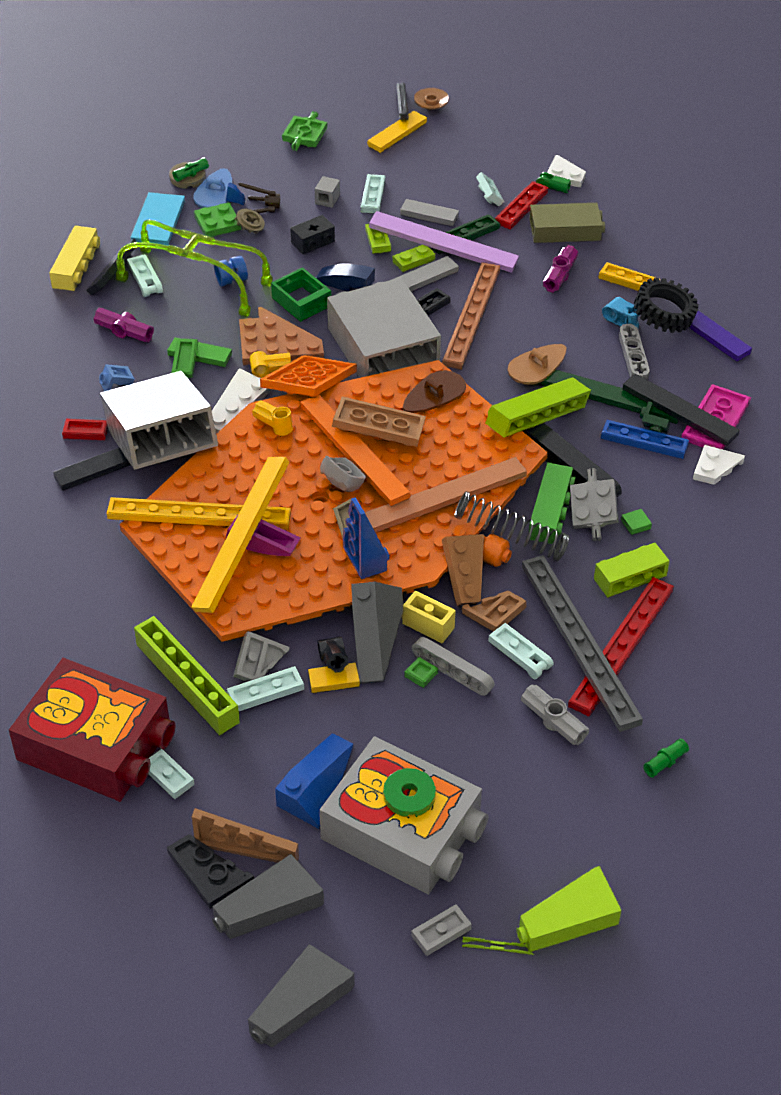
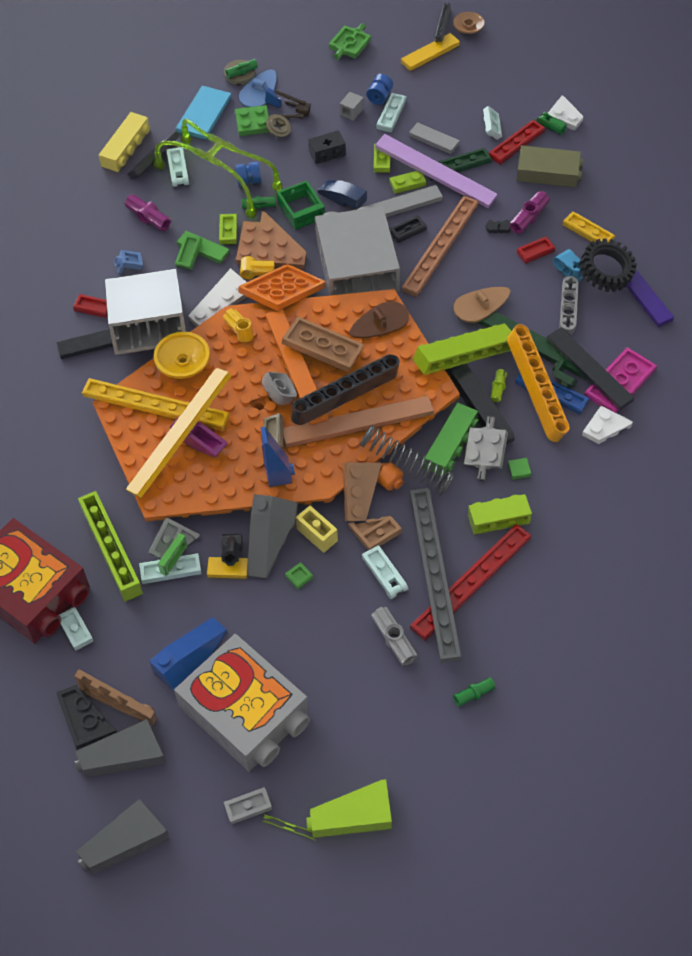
camera: 15 degrees right, 10 degrees up
(218, 455) = (180, 348): none -> yellow dish
(224, 329) = (228, 229): none -> lime plate
(264, 296) = (260, 202): none -> green pin
(267, 669) = (172, 554): none -> bright green tile
(354, 171) = (379, 89): none -> blue wheel
(409, 779) = (243, 678): green tile -> none
(421, 462) = (344, 389): none -> black beam
(453, 666) = (325, 576): light grey beam -> none
(529, 288) = (498, 226): none -> black piece
(578, 305) = (535, 250): none -> red tile
(585, 440) = (498, 385): none -> lime axle
(630, 430) = (538, 383): none -> light orange beam

